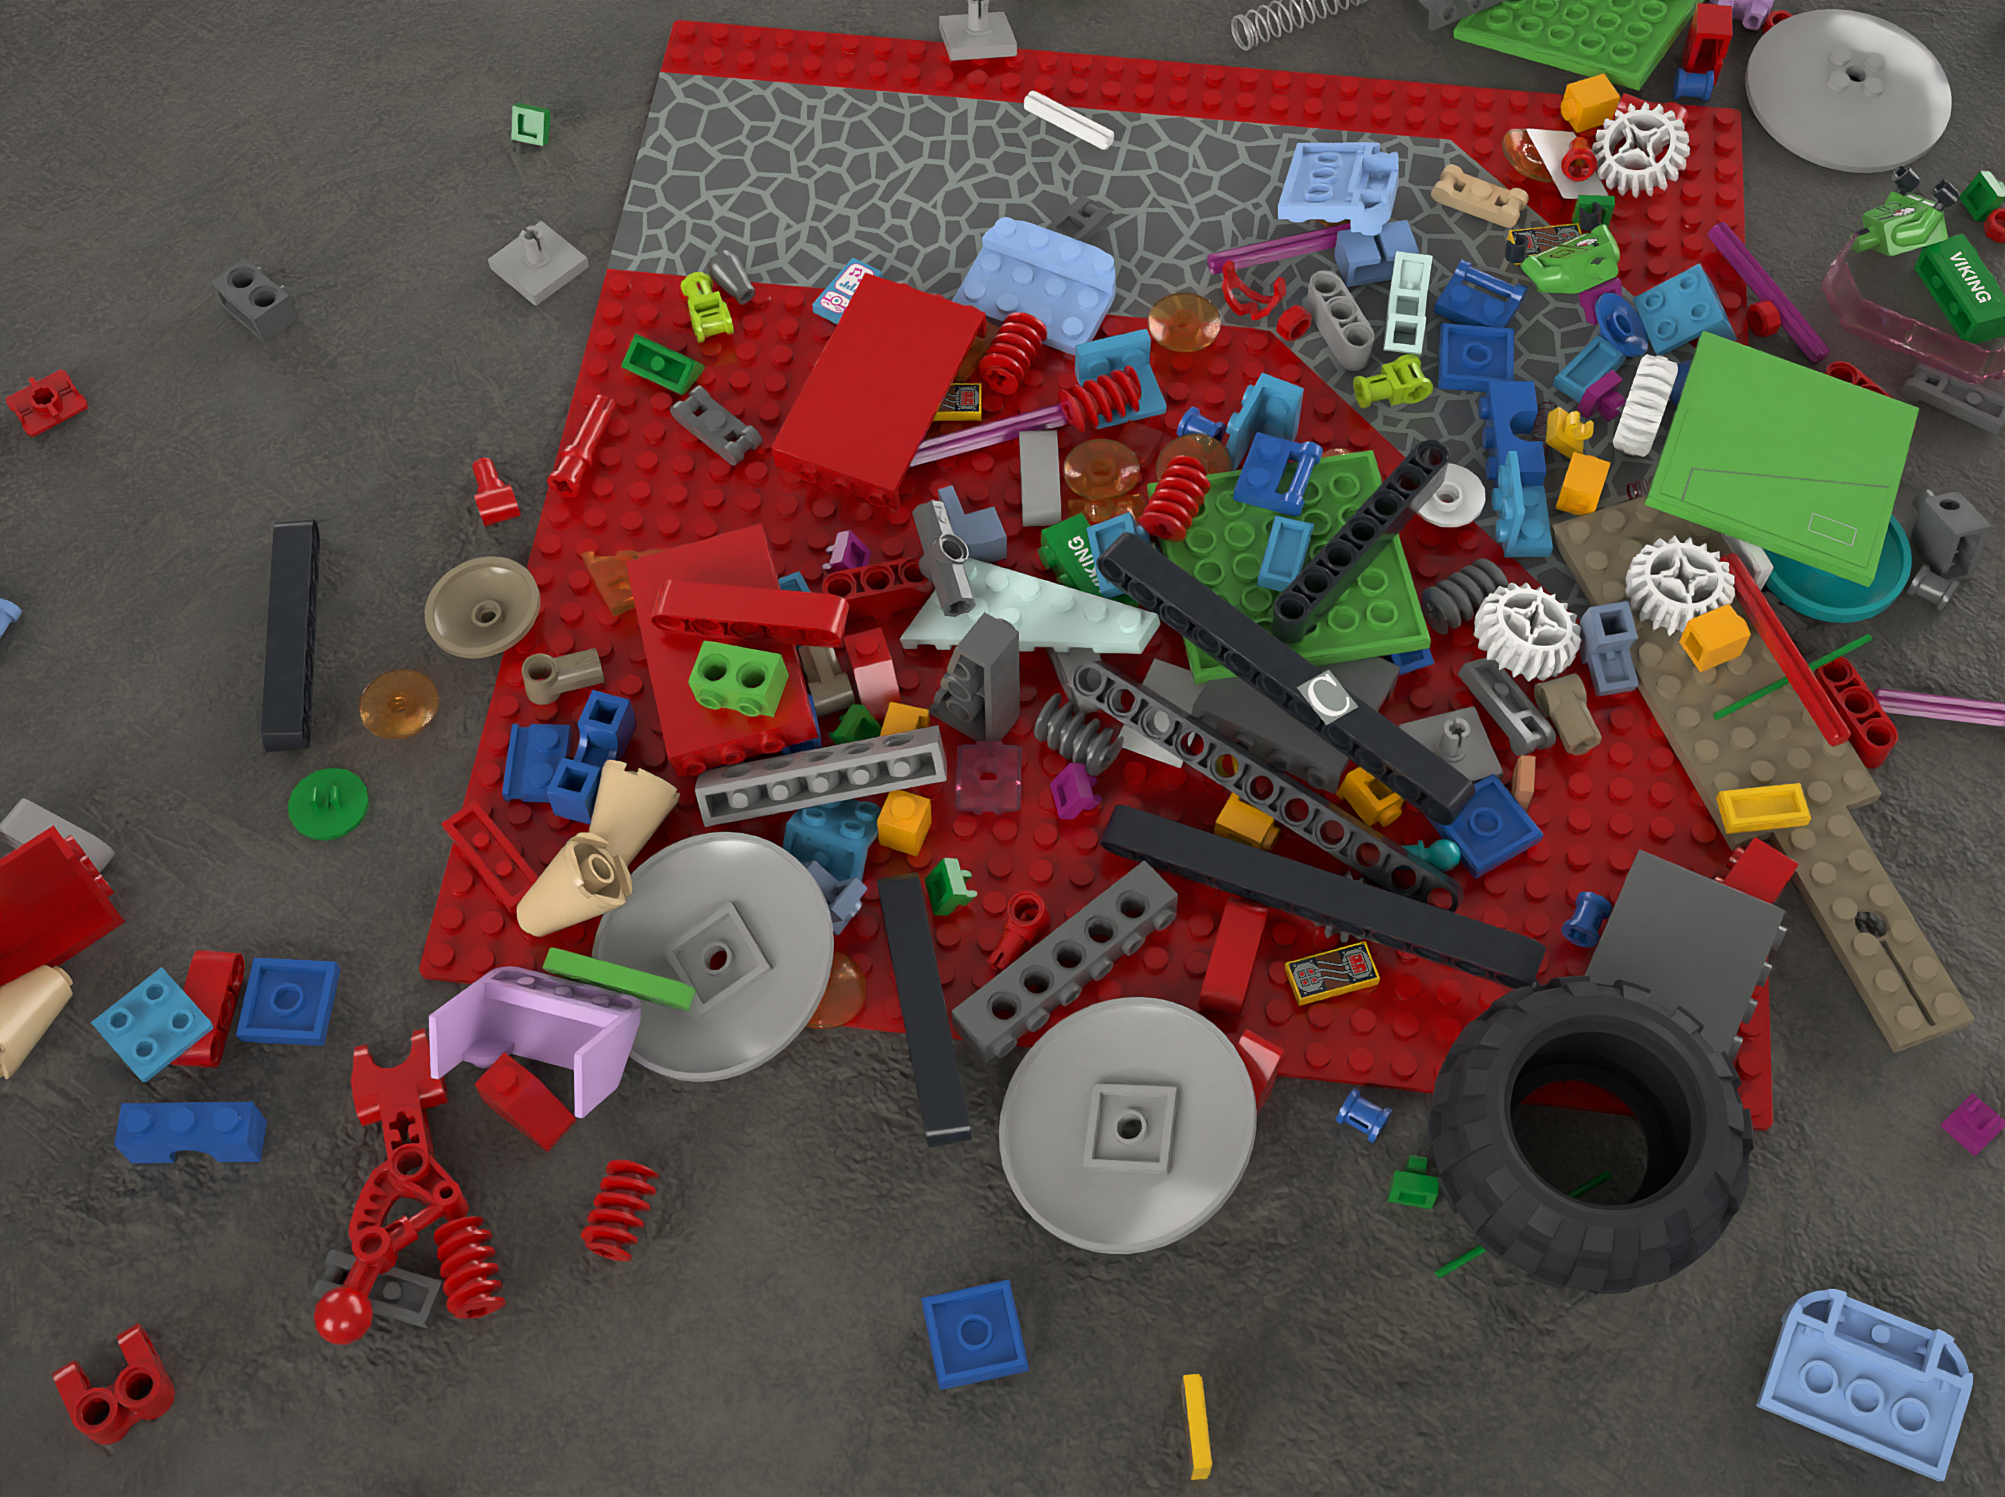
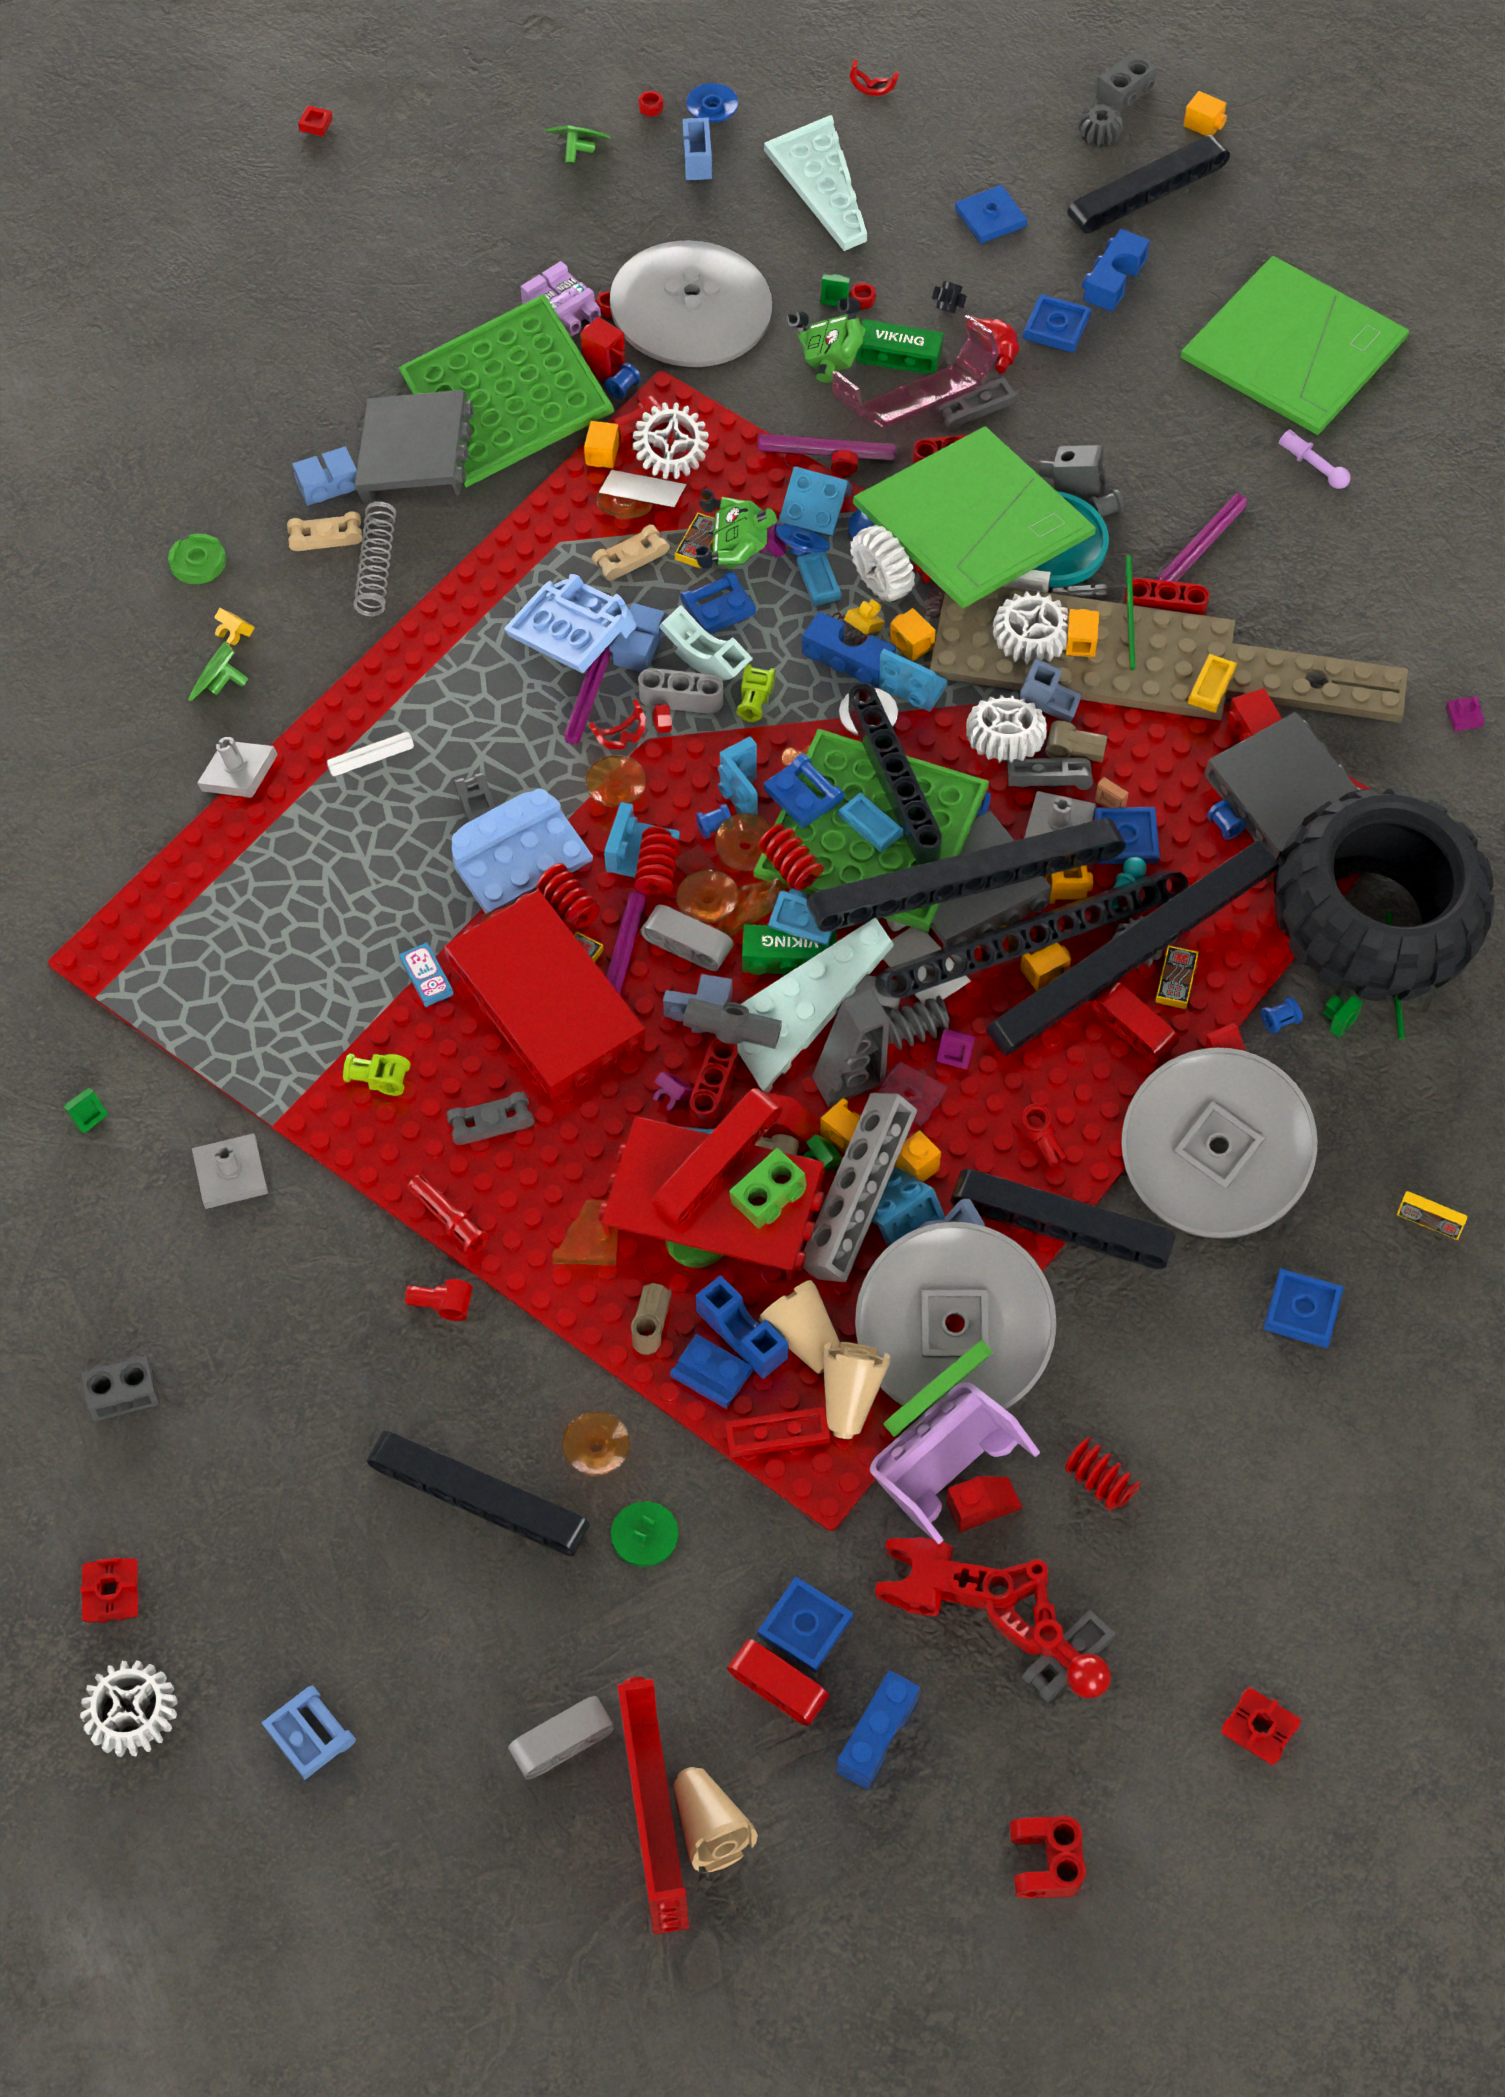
camera: 60 degrees left, 0 degrees up
(152, 1025) = (778, 1718): dark azure bracket -> none
(465, 1268) = (1092, 1588): red piece -> none
(475, 594) = (550, 1326): dark tan dish -> none
(661, 365) = (404, 1128): green slope -> none
(730, 275) = (358, 1041): dark grey cone -> none
(947, 887) = (982, 1157): green tile -> none
(1138, 891) = (1069, 1045): dark grey brick -> none
(1327, 697) = (1005, 856): light grey sticker -> none
(1460, 595) = (954, 744): dark grey piece -> none
(1474, 356) = (768, 633): blue plate -> none
(1579, 160) = (652, 479): red cone -> none
(1585, 201) = (692, 498): green tile -> none
(1603, 397) = (852, 583): magenta tile -> none
(1786, 654) = (1118, 604): red axle -> none

